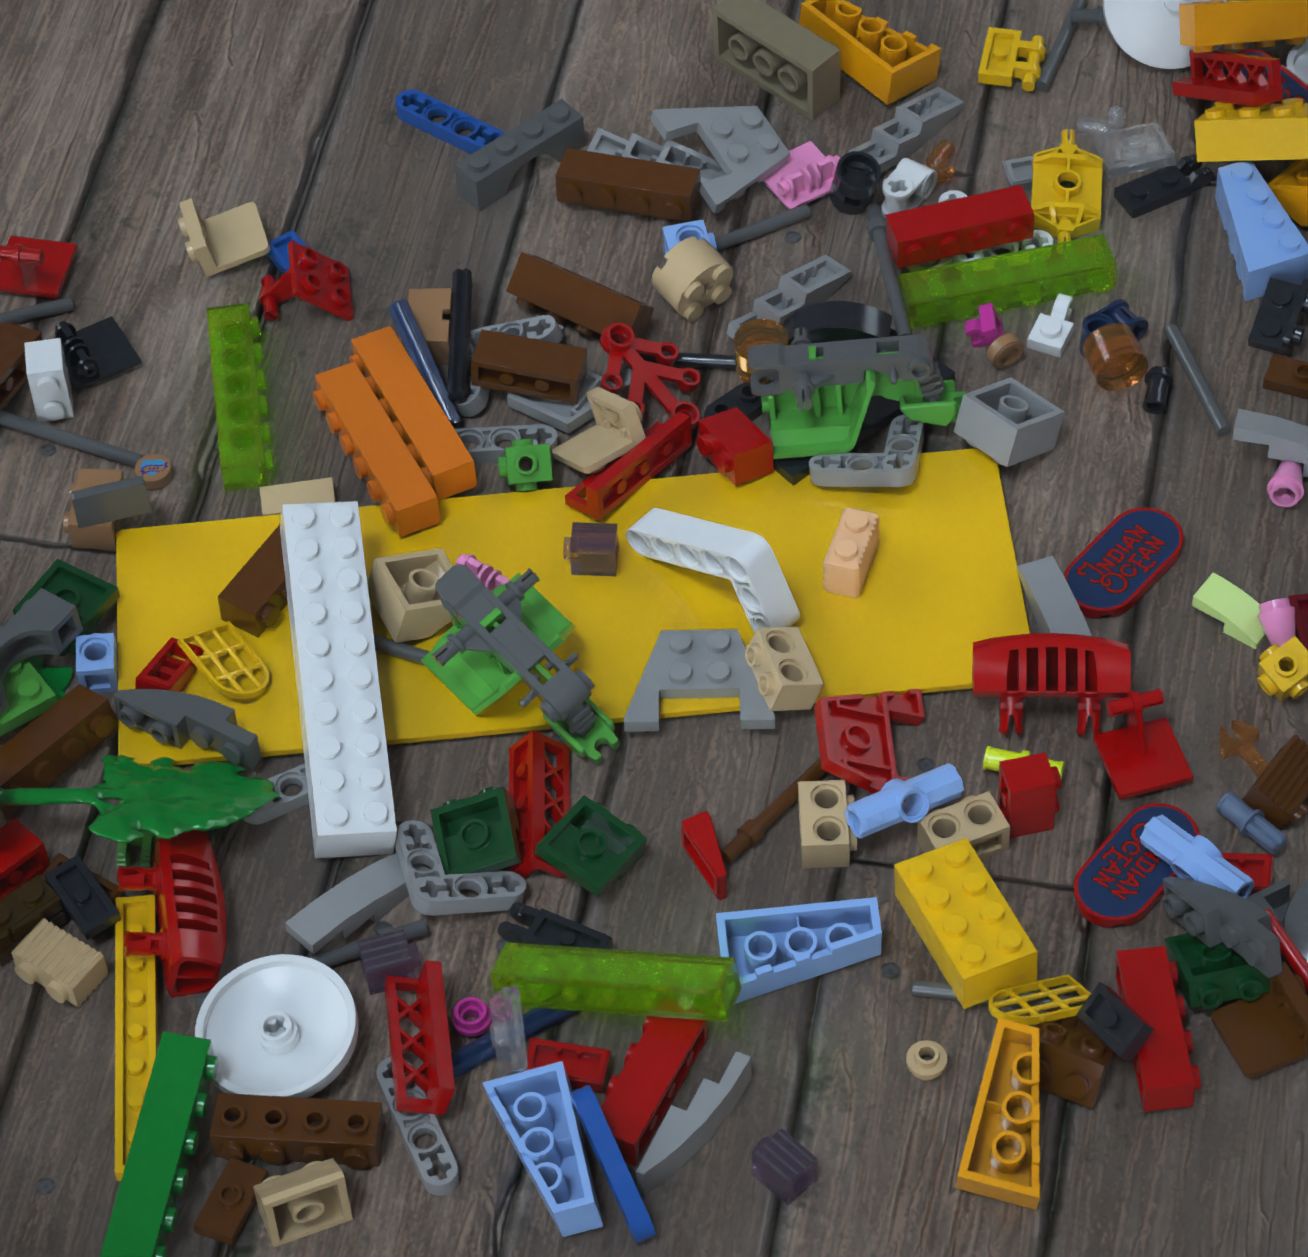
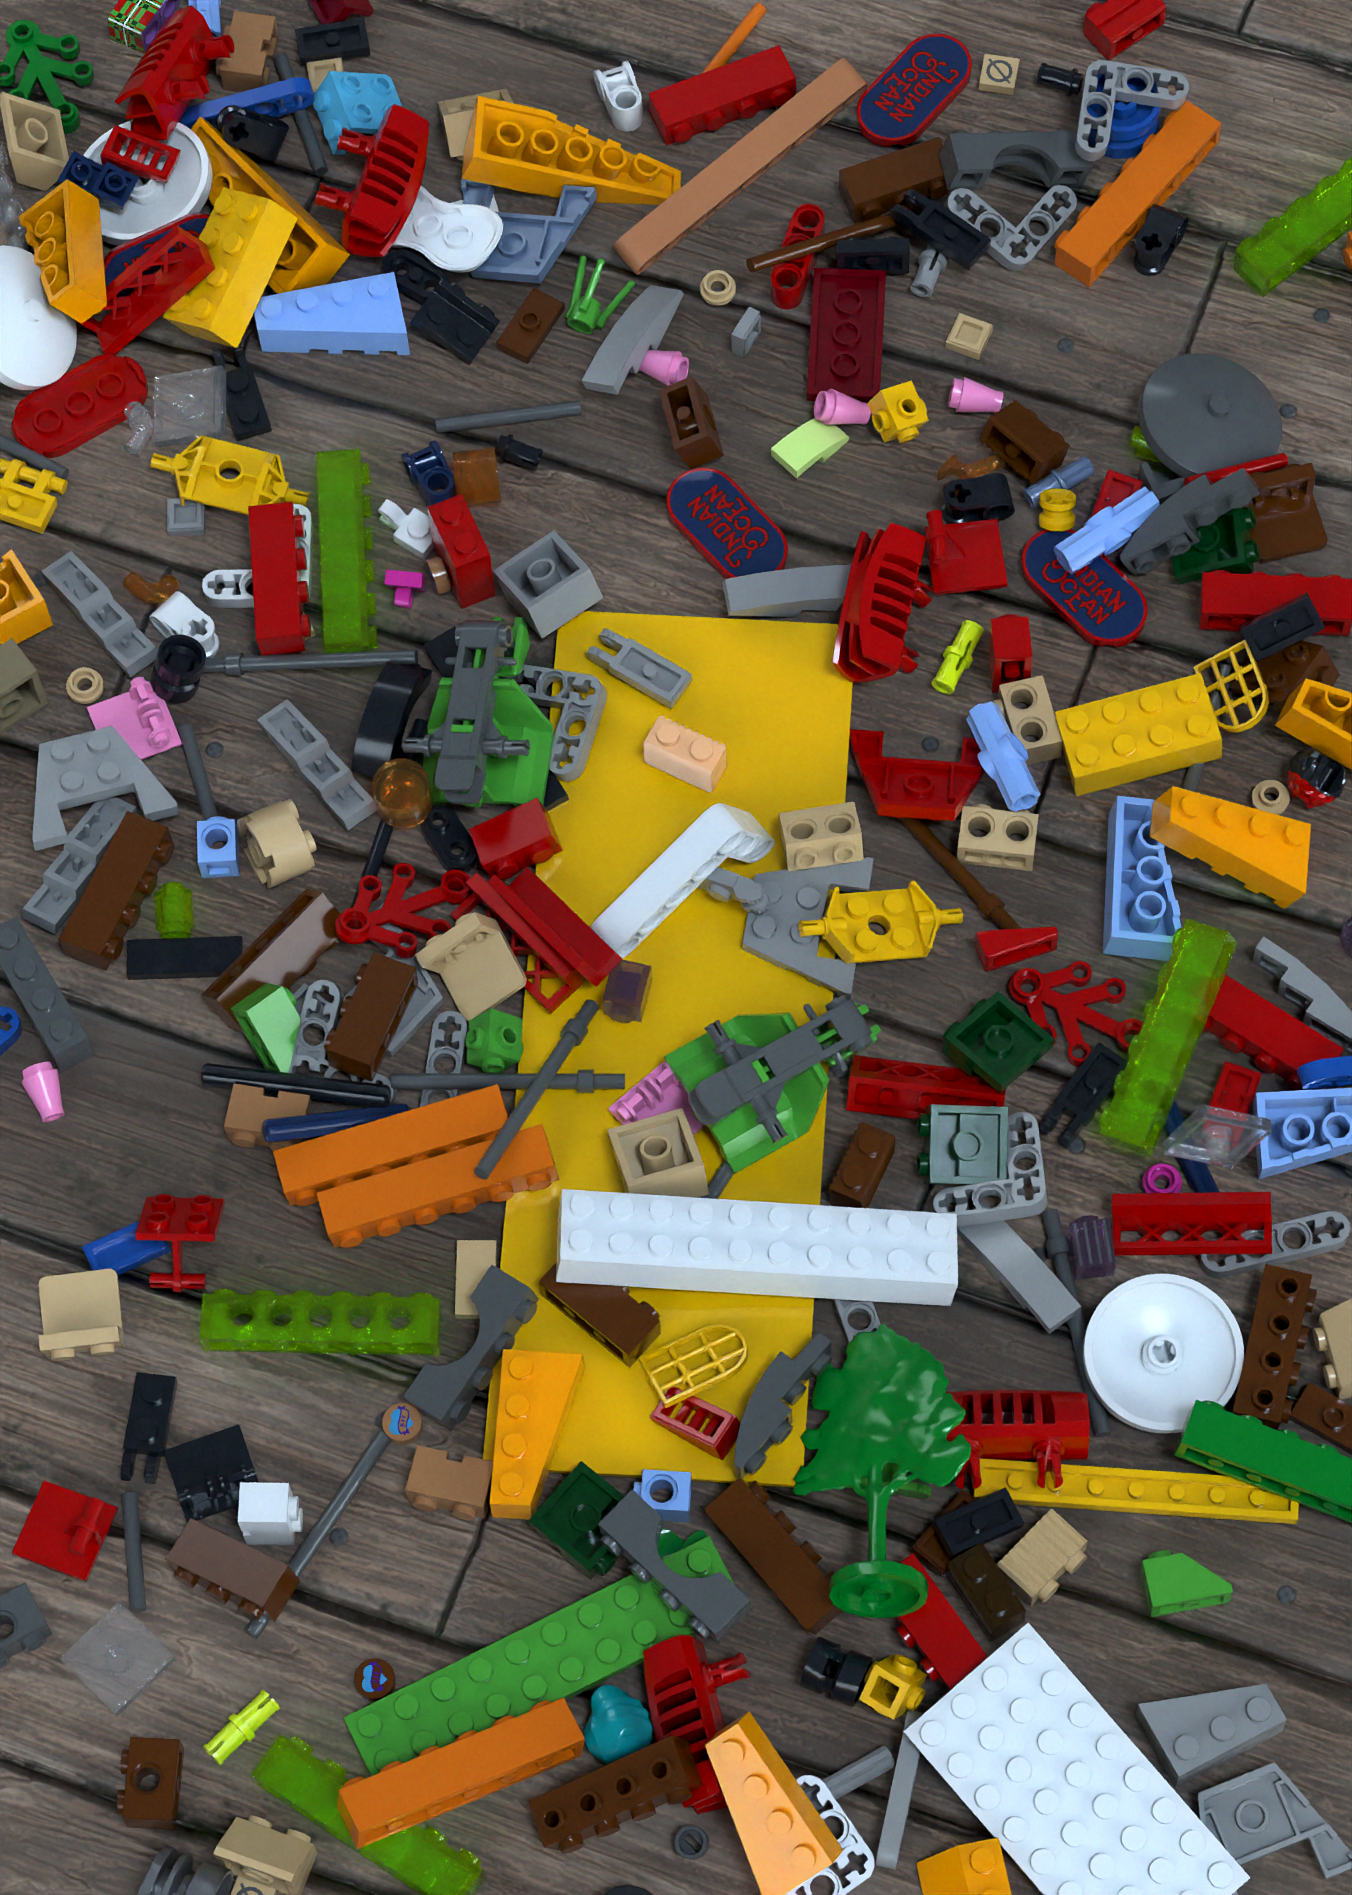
camera: 80 degrees left, 15 degrees up
(41, 1079) = (1180, 1584): none -> bright green slope
(110, 501) = (467, 1455): dark grey panel -> none
(133, 303) = (148, 1423): none -> black hinge
(144, 543) = (531, 1414): none -> light orange wedge
(255, 506) = (448, 1389): none -> dark grey arch
(435, 177) = (44, 1090): none -> bright pink cone
(442, 761) = (862, 1167): none -> reddish brown brick
(498, 533) = (584, 1080): none -> dark grey bar
(510, 298) = (270, 1025): none -> bright green slope
(543, 518) = (571, 1036): none -> dark grey bar
(579, 243) = (181, 957): none -> black tile
(619, 230) = (174, 910): none -> clear neon green brick
(644, 487) = (558, 925): none -> red fence
(653, 913) = (1072, 1006): none -> red plant
(697, 708) = (905, 913): none -> yellow plate
(709, 606) = (726, 884): none -> light grey hinge
(831, 134) = (85, 676): none -> tan plate
(851, 1024) = (1236, 840): none -> light orange wedge
(939, 511) = (641, 668): none -> light grey hinge
(952, 1087) = (1315, 778): none -> black piece
(1025, 344) = (462, 551): none -> red brick
(1113, 78) = (79, 405): none -> red tile
(1209, 754) = (979, 499): none -> black piece
(1215, 820) = (1057, 509): none -> yellow wheel
(1222, 505) = (691, 422): none -> reddish brown brick

